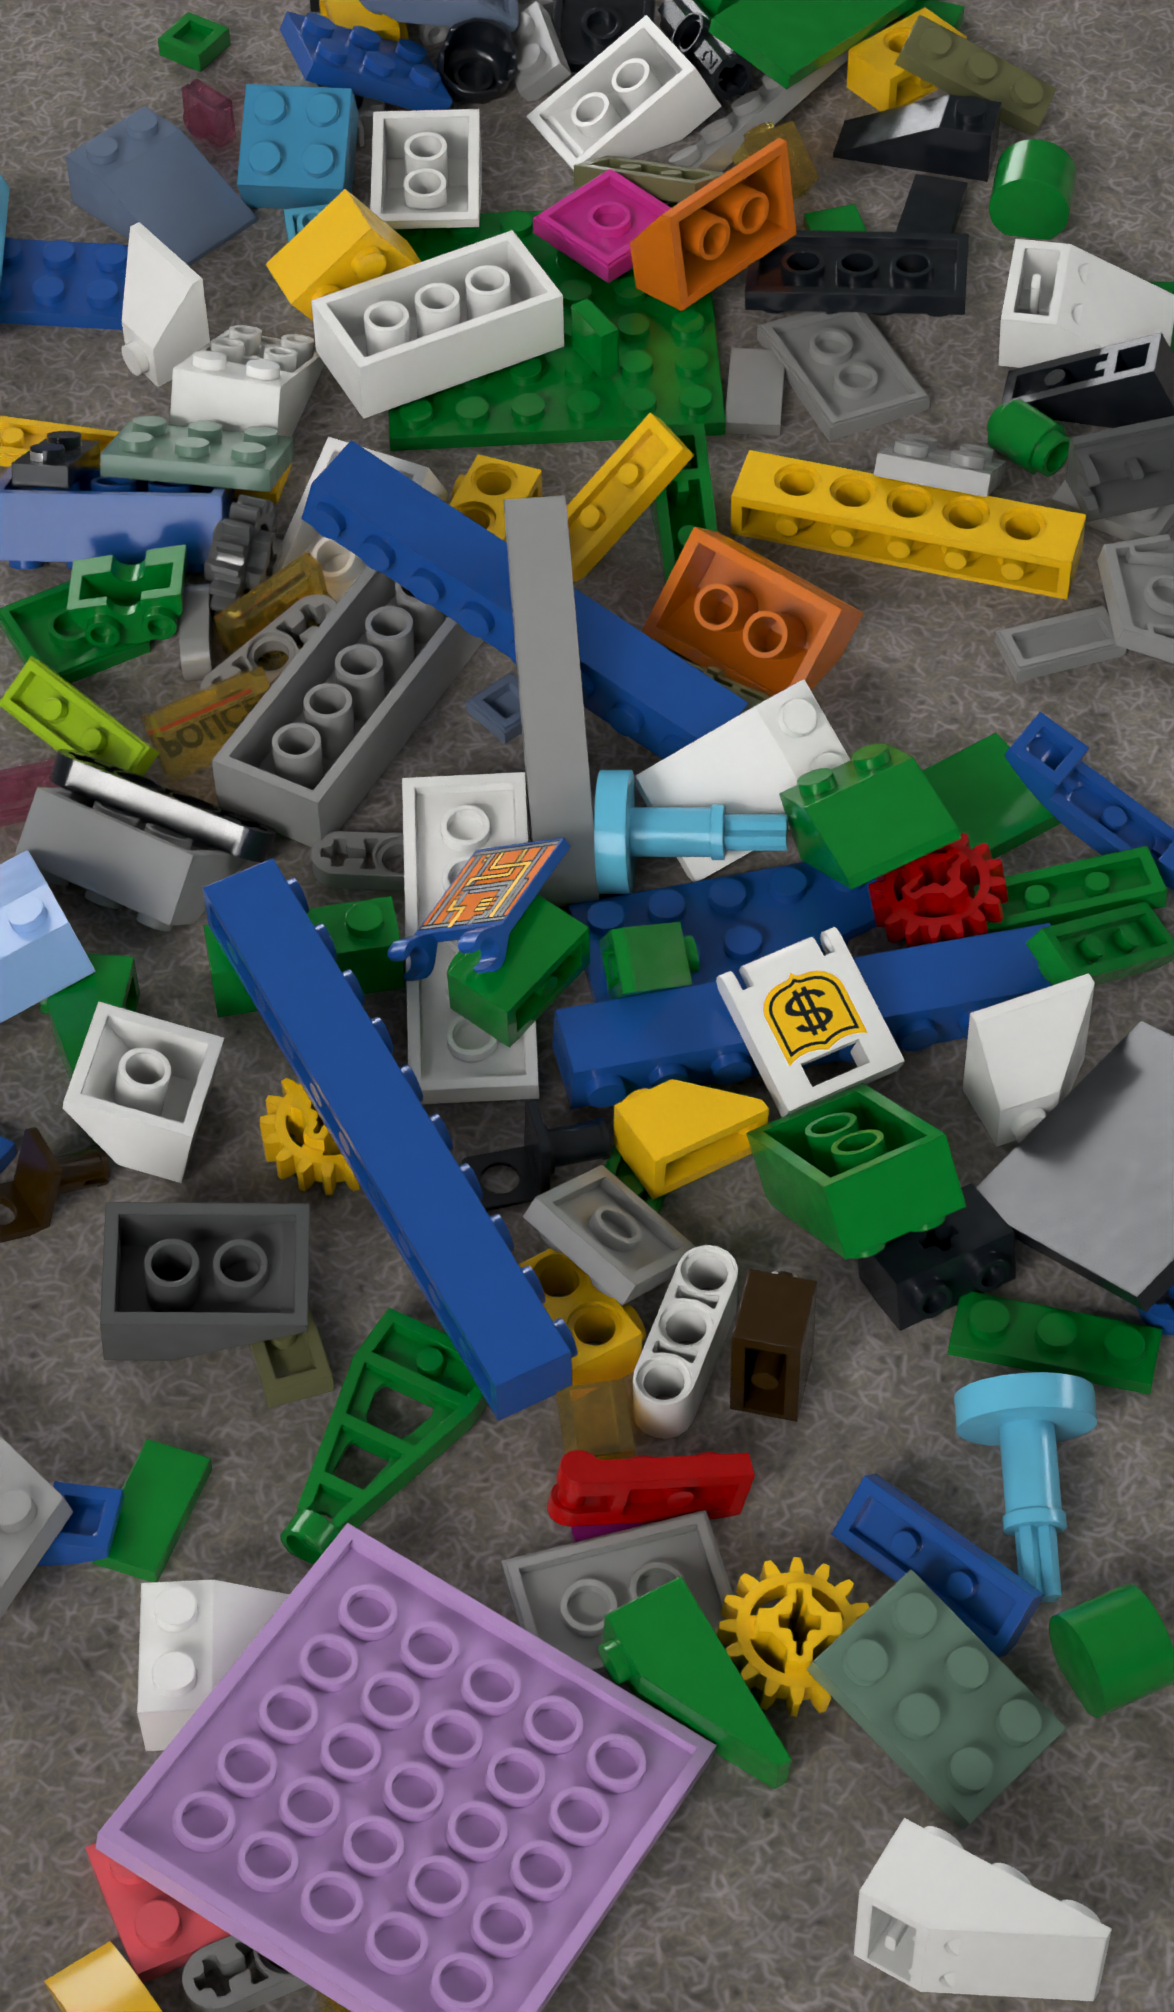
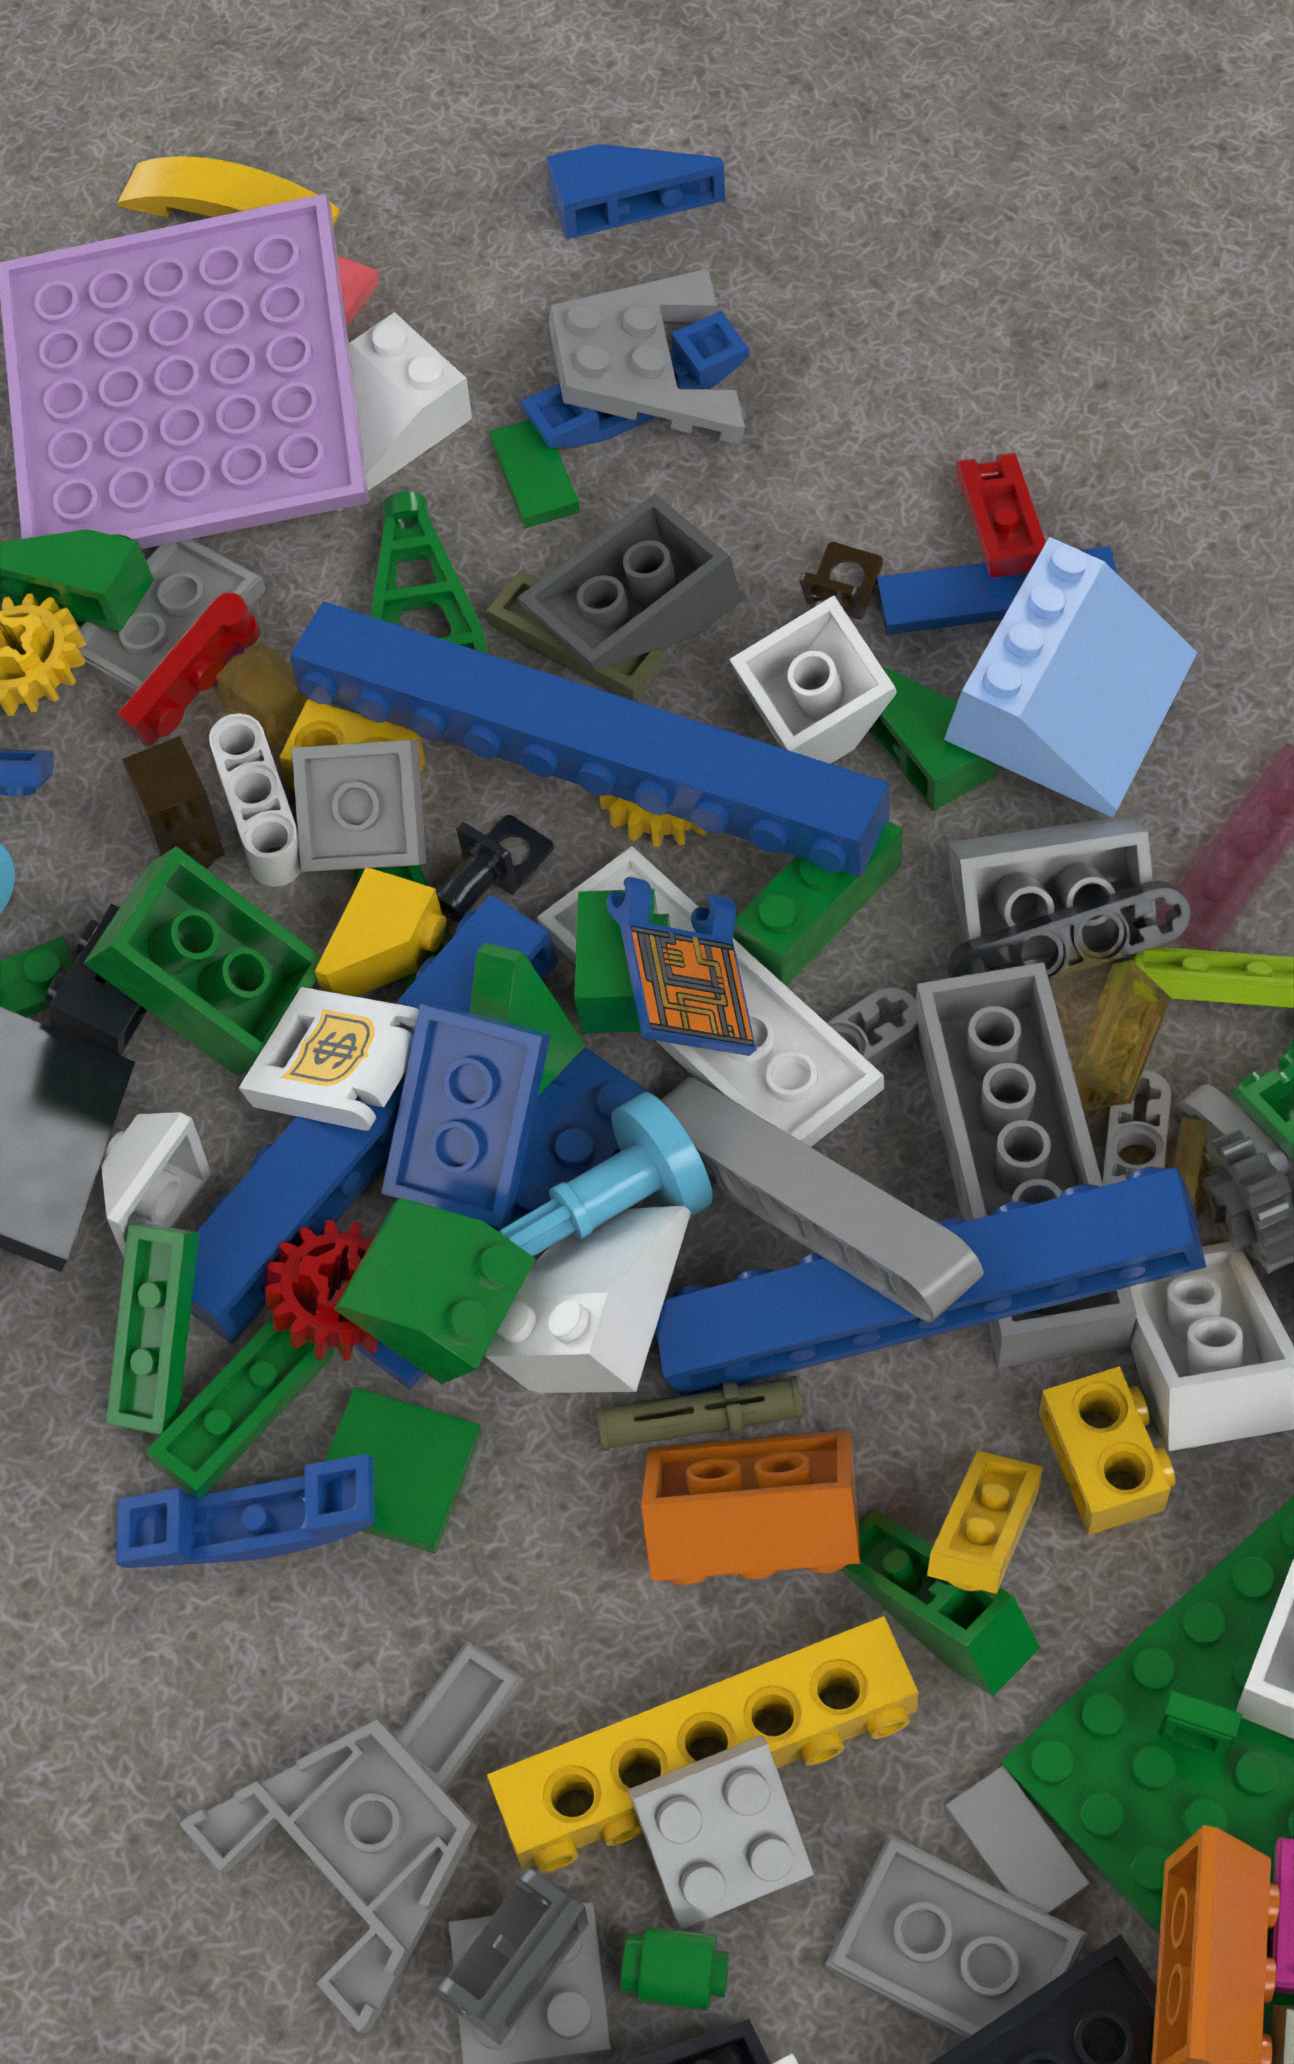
camera: 145 degrees right, 10 degrees up
(732, 909) = (465, 1113): none -> blue plate

